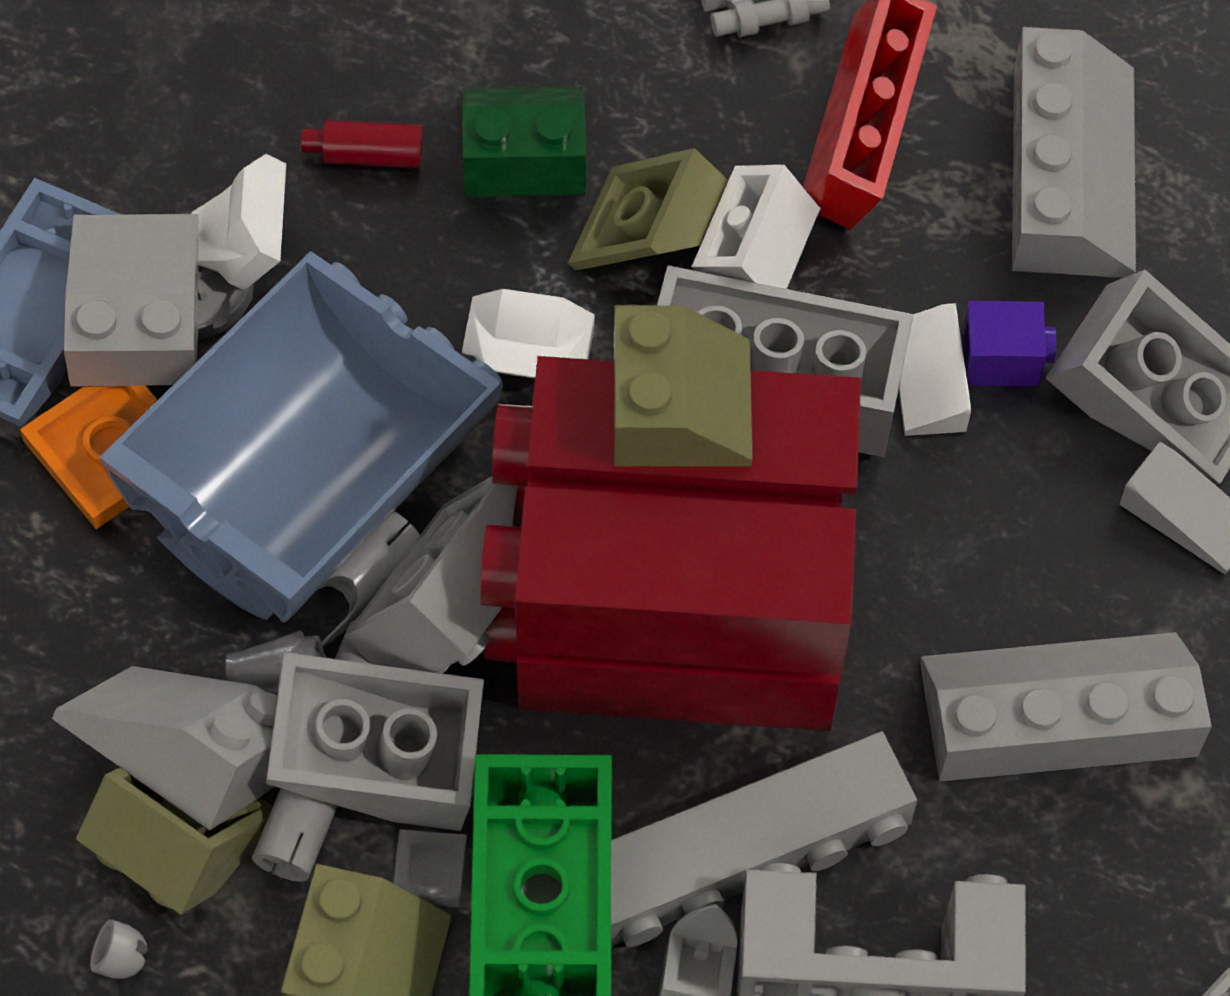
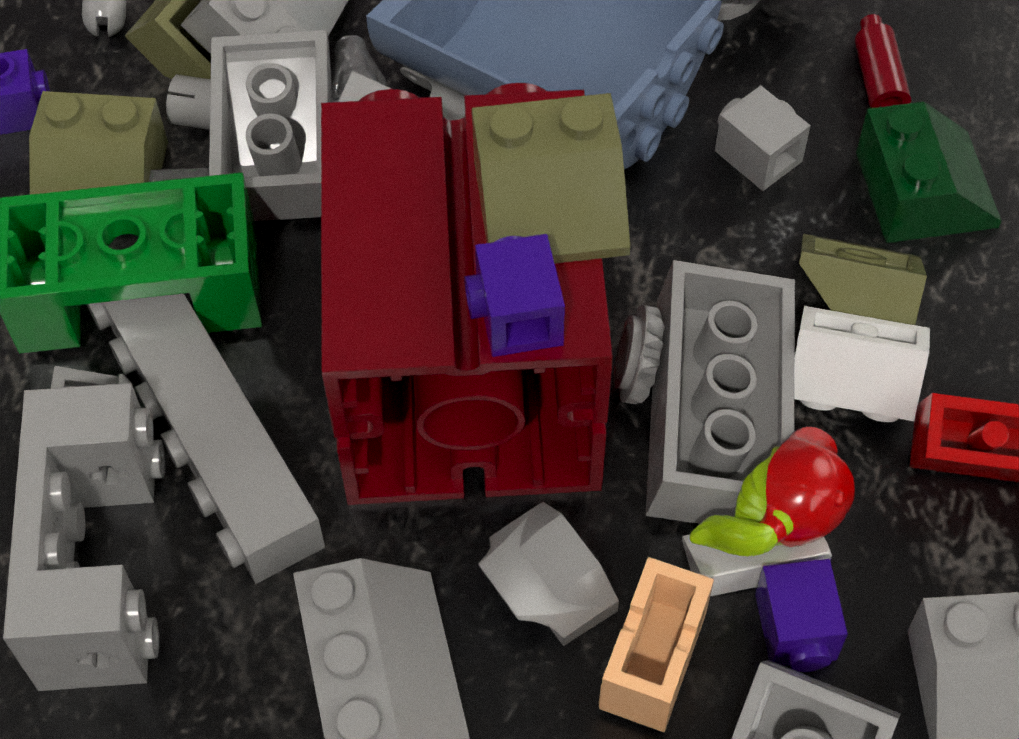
camera: 85 degrees right, 5 degrees down
(448, 270) = (761, 137): none -> light grey brick
(515, 327) = (707, 209): white slope -> none
(806, 433) = (517, 294): none -> dark purple brick
(920, 318) = (786, 499): none -> red hair
(933, 548) = (549, 574): none -> light grey slope
(1033, 459) = (655, 644): none -> light nougat brick

